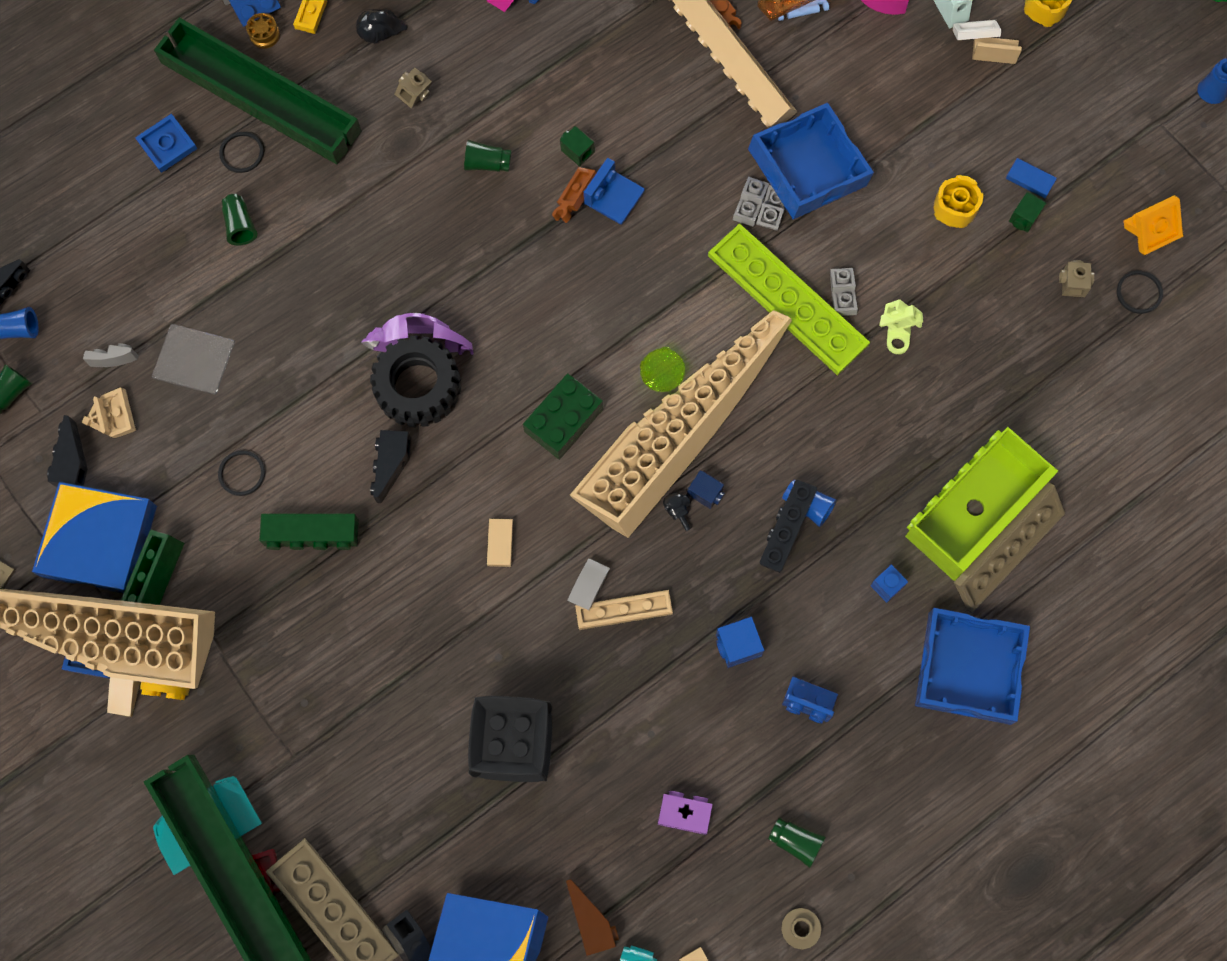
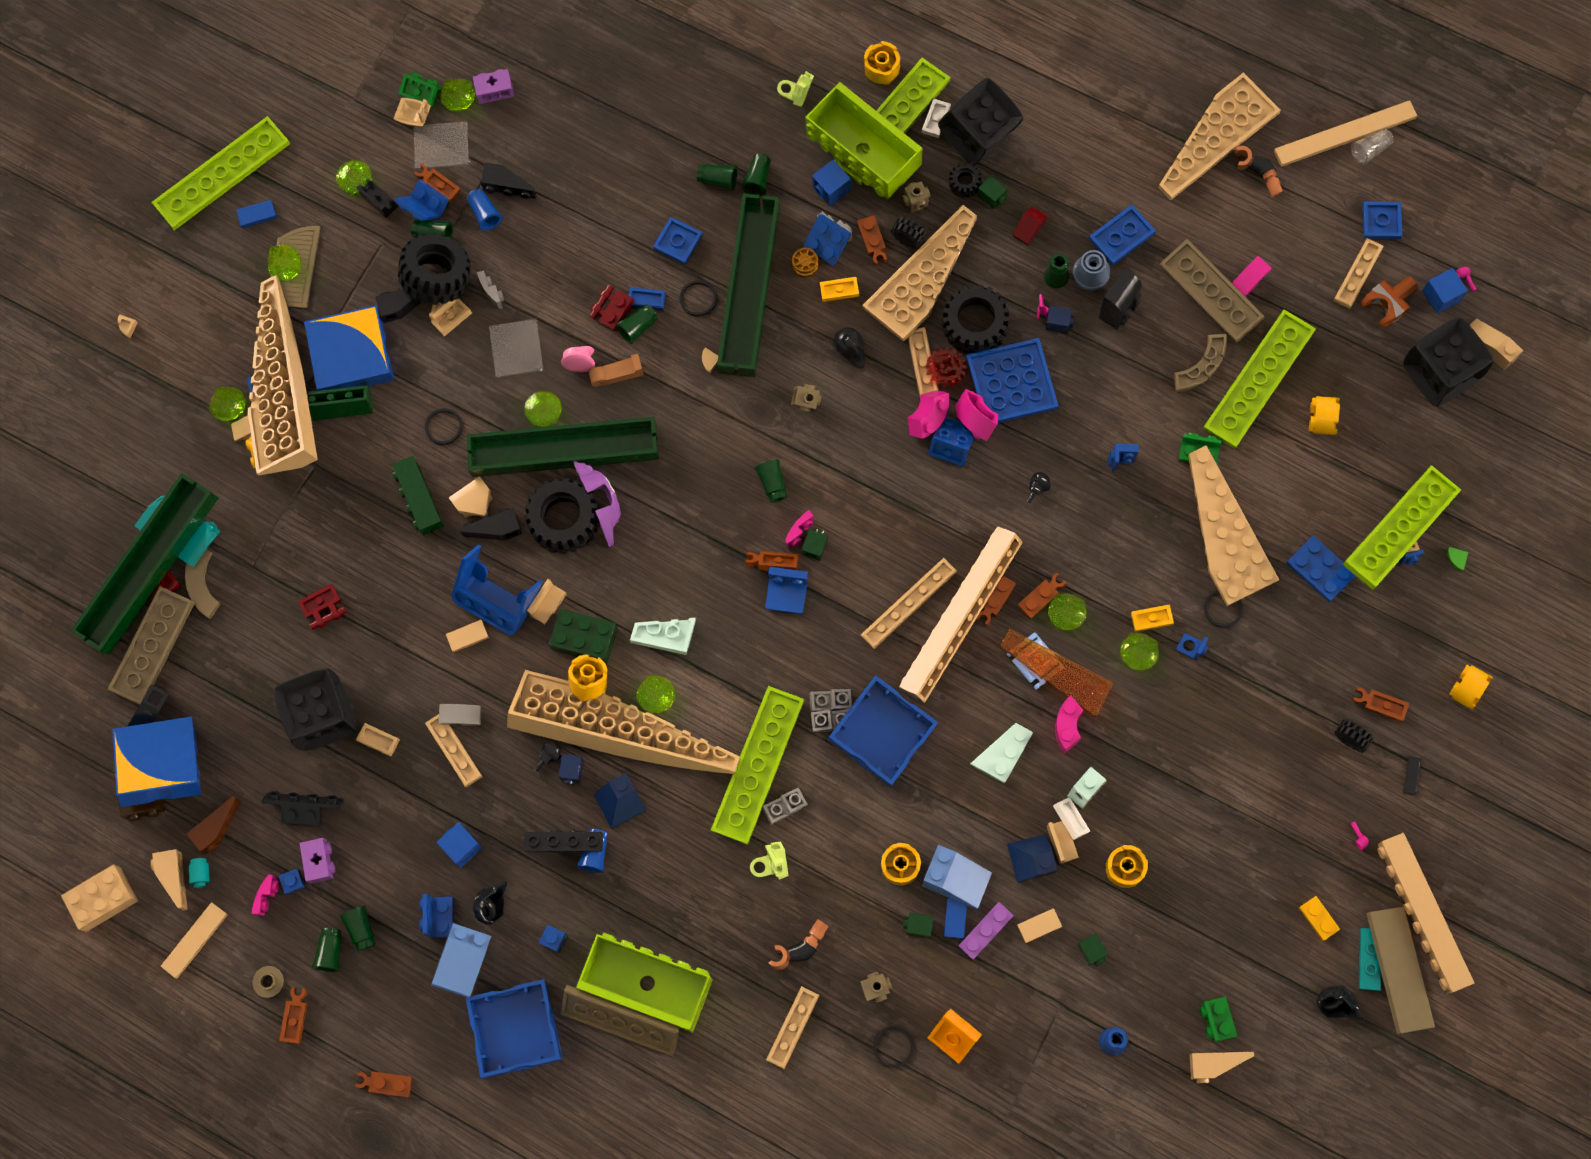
camera: 70 degrees right, 0 degrees up
(65, 415) = (438, 251): none -> black tyre
(80, 705) = (227, 403): none -> clear neon green dish
(116, 72) = (718, 175): none -> dark green plant
(139, 34) = (757, 175): none -> dark green plant
(209, 235) = (616, 309): none -> dark red plate
(210, 204) = (642, 297): none -> blue tile
(245, 294) = (578, 359): none -> bright pink piece
(279, 357) = (543, 408): none -> clear neon green dish
(280, 262) = (616, 371): none -> medium nougat leg
(290, 829) = (197, 586): none -> dark tan tile
(317, 167) = (709, 360): none -> tan tile
(336, 352) = (561, 445): none -> dark green piece
(344, 473) = (472, 499): none -> tan slope
(378, 690) = (319, 602): none -> dark red plate
(475, 499) = (488, 600): none -> blue windscreen
(505, 441) = (546, 602): none -> tan panel
(552, 155) = (795, 534): none -> dark pink slope
(572, 690) = (378, 740): none -> tan tile
(603, 332) = (667, 636): none -> light aqua wing
(614, 427) = (587, 677): none -> yellow brick
(614, 807) = (302, 808): none -> black bracket
(683, 87) = (908, 603): none -> tan tile
(694, 854) = (291, 881): none -> blue plate
(694, 885) = (267, 889): none -> dark pink slope
(763, 454) = (619, 801): none -> dark blue slope
(785, 795) = (359, 928): none -> dark green plant
(819, 637) = (490, 904): none -> black hair
(858, 913) = (294, 1018): none -> dark orange plate
(875, 689) = (461, 960): none -> medium blue slope
(882, 64) = (1004, 753): none -> light aqua wing
(975, 836) = (386, 1083): none -> dark orange plate
(990, 158) = (956, 877): none -> medium blue slope
(1002, 81) = (1032, 858): none -> dark blue slope
(1007, 336) = (803, 950): none -> nougat piece
(1056, 156) = (985, 931): none -> medium lavender plate
(1071, 105) = (1039, 925): none -> tan tile
(1082, 380) = (792, 1027): none -> tan tile
(1118, 65) = (1093, 950): none -> dark green brick

